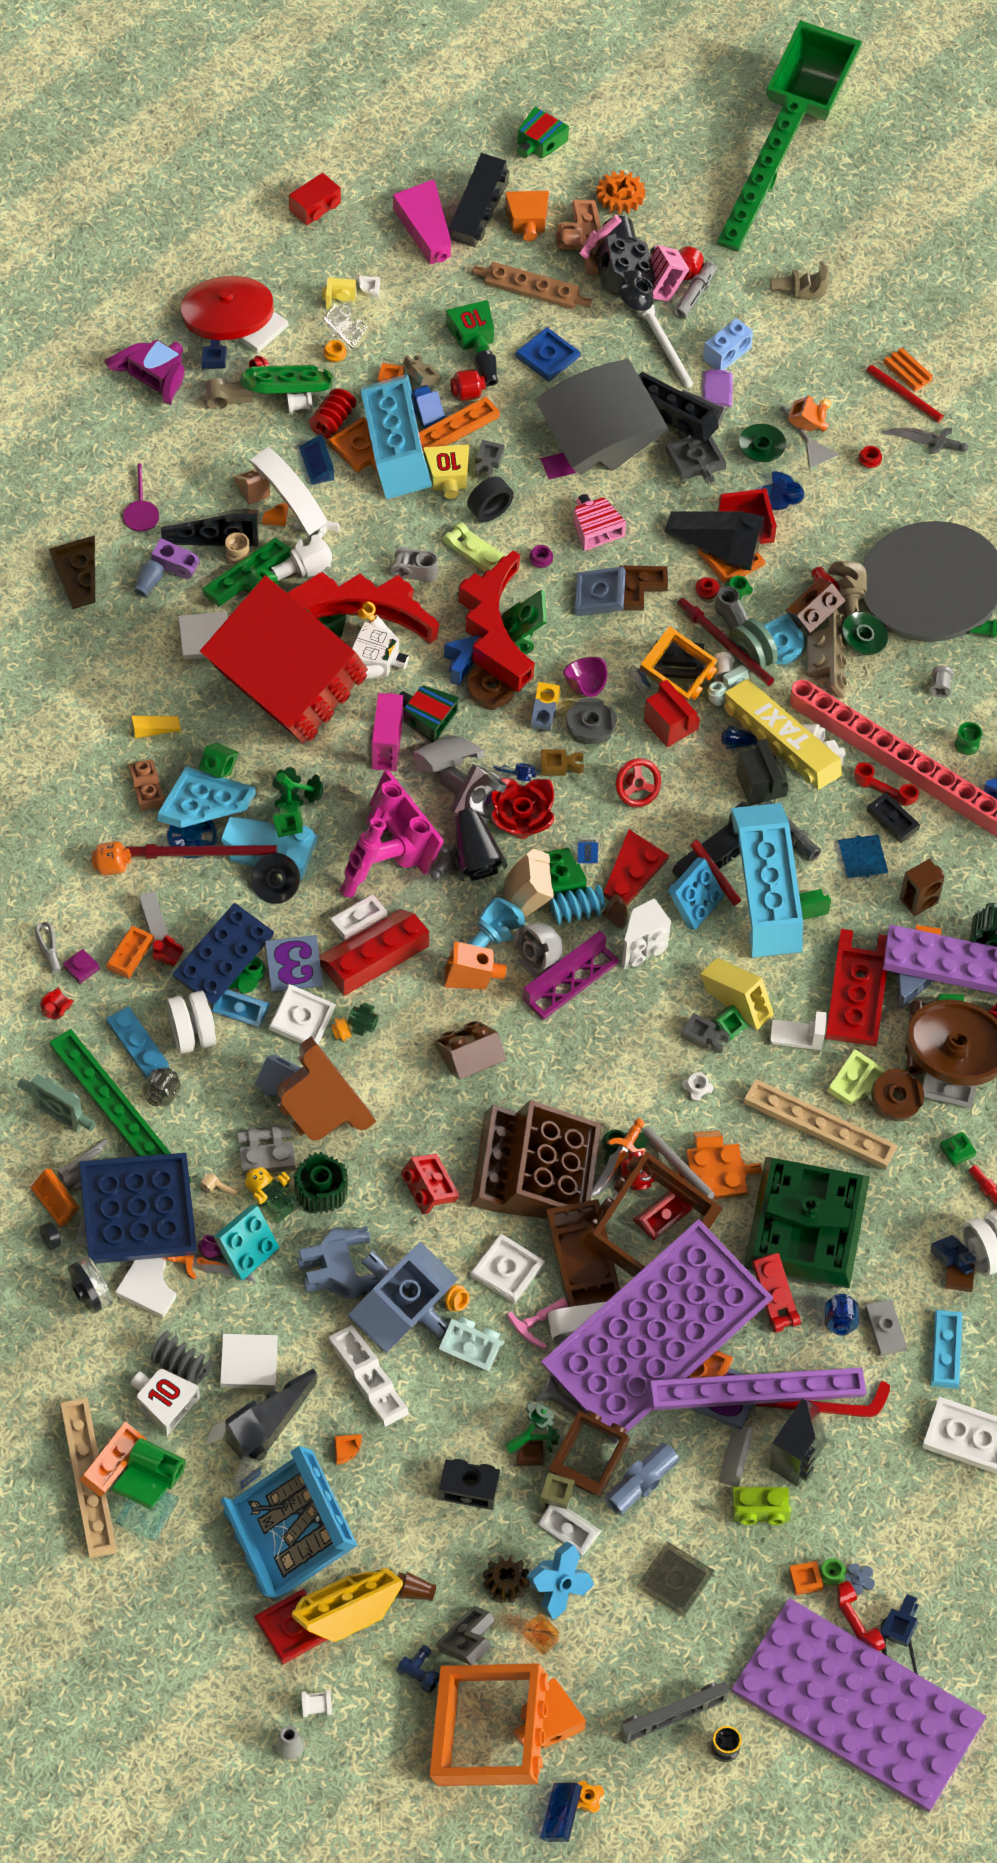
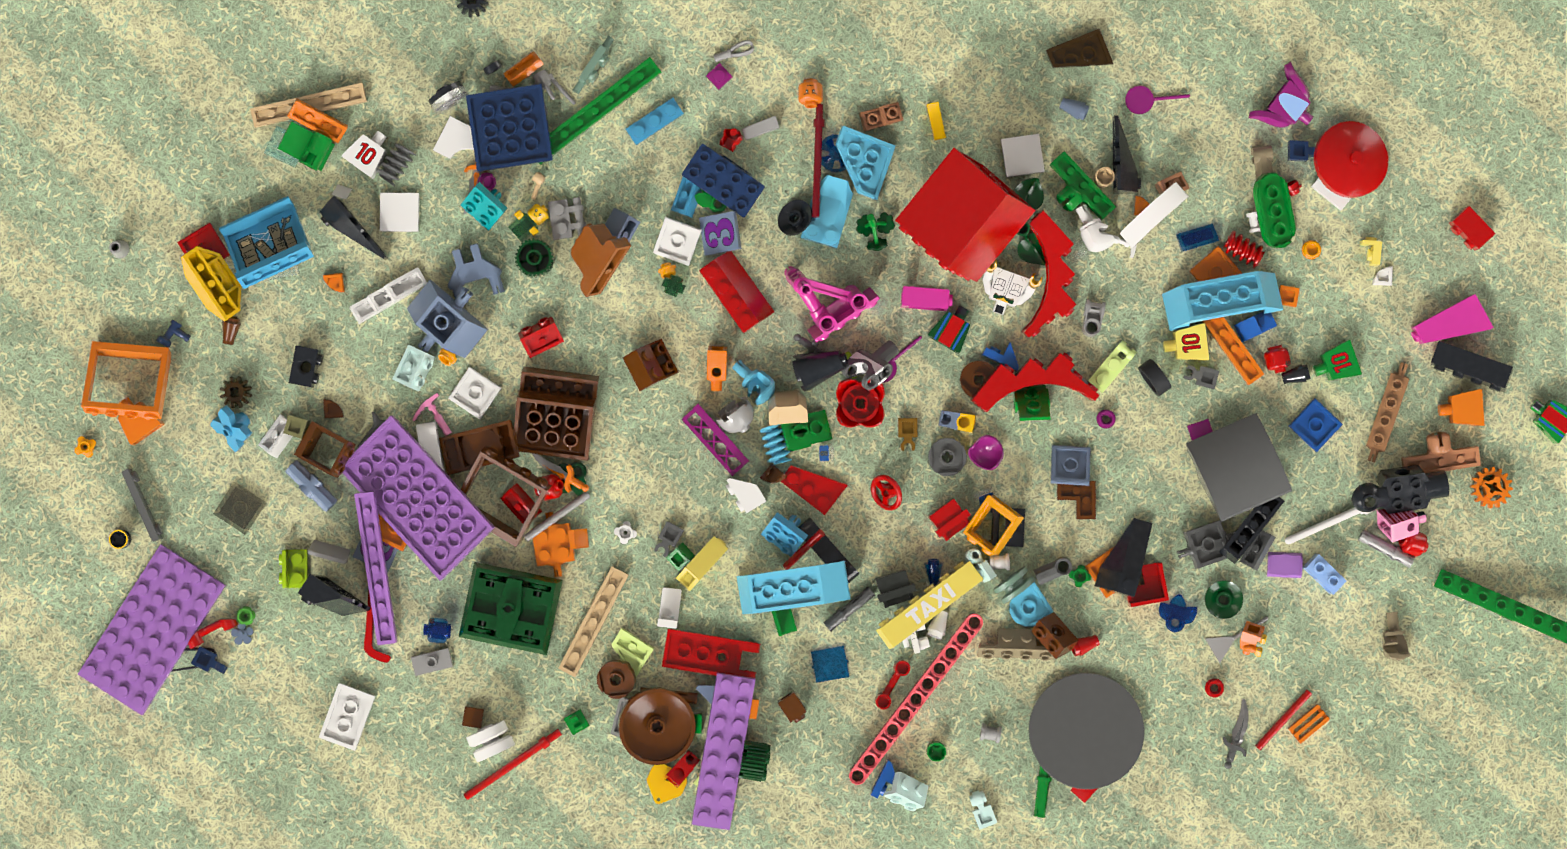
camera: 90 degrees right, 30 degrees up
(55, 1004) = (684, 60): red arm -> none
(130, 952) = (730, 112): orange plate -> none
(162, 1086) = (614, 140): clear smoke head -> none
(175, 559) = (1092, 128): medium lavender leg -> none
(196, 1021) = (663, 159): white wheel -> none
(218, 760) = (898, 170): green brick -> none
(247, 1472) = (312, 213): clear slope -> none
(288, 819) = (839, 226): green leg -> none
(316, 1703) = (147, 265): white bush -> none
(342, 326) = (1332, 255): clear hips -> none
(359, 917) = (763, 281): white plate -> none
(422, 373) = (1289, 321): dark tan plate -> none
(445, 753) = (910, 344): light grey slope -> none
(465, 1638) = (191, 361): dark grey plate -> none
(522, 770) = (893, 401): clear blue plate -> none
(540, 1417) = (345, 413): plant -> none
(541, 1634) = (197, 417): clear orange slope -> none
(561, 1812) = (73, 428): clear blue plate -> none
(594, 237) = (1424, 460): bright pink piece -> none
(597, 522) = (1139, 463): bright pink torso -> none
(696, 615) = (1050, 541): dark red bar -> none
(707, 593) = (1073, 555): red plate -> none
(772, 1277) = (452, 583): plate -> none
(806, 1578) = (241, 597): orange tile -> none
(852, 584) = (1073, 666): dark tan piece -> none
(866, 626) = (1034, 683): dark green dish -> none
(893, 817) = (862, 688): black plate -> none
(946, 1349) = (416, 704): medium azure tile -> none
(952, 1251) = (489, 712): dark blue plate -> none

